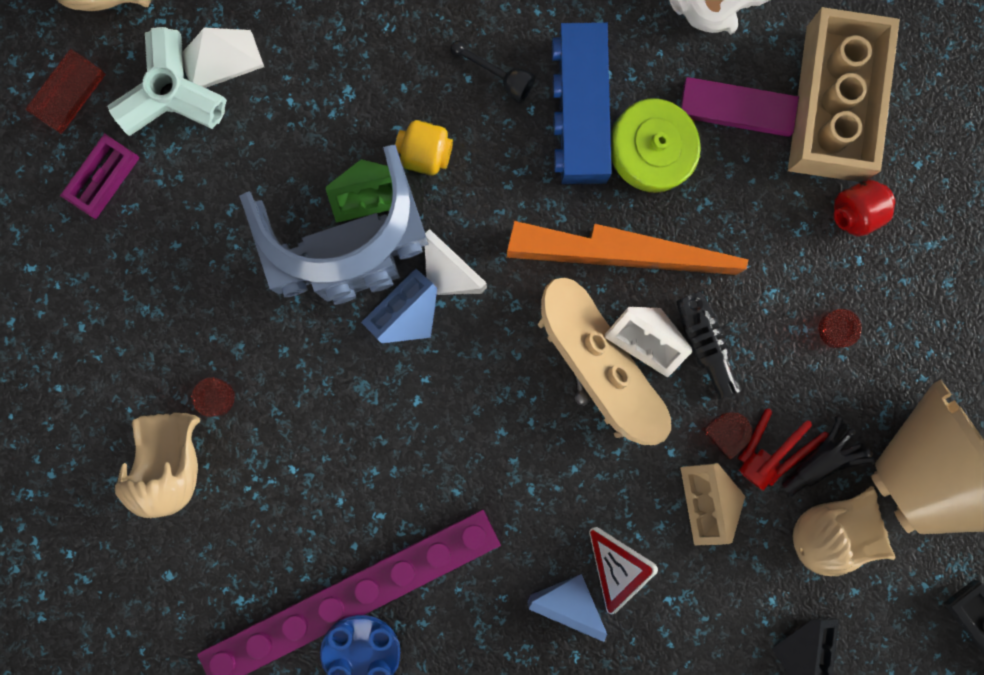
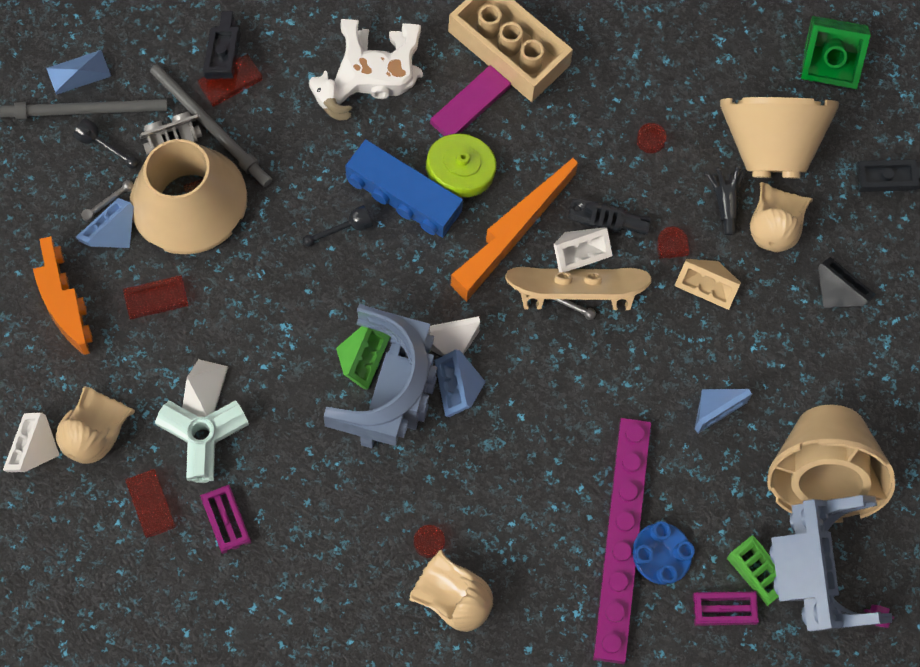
camera: 60 degrees left, 15 degrees down
(424, 147) = (358, 293): yellow head -> none
(619, 569) = (713, 360): piece -> none
(762, 467) = (707, 236): red plant -> none
(864, 207) = (586, 74): red head -> none

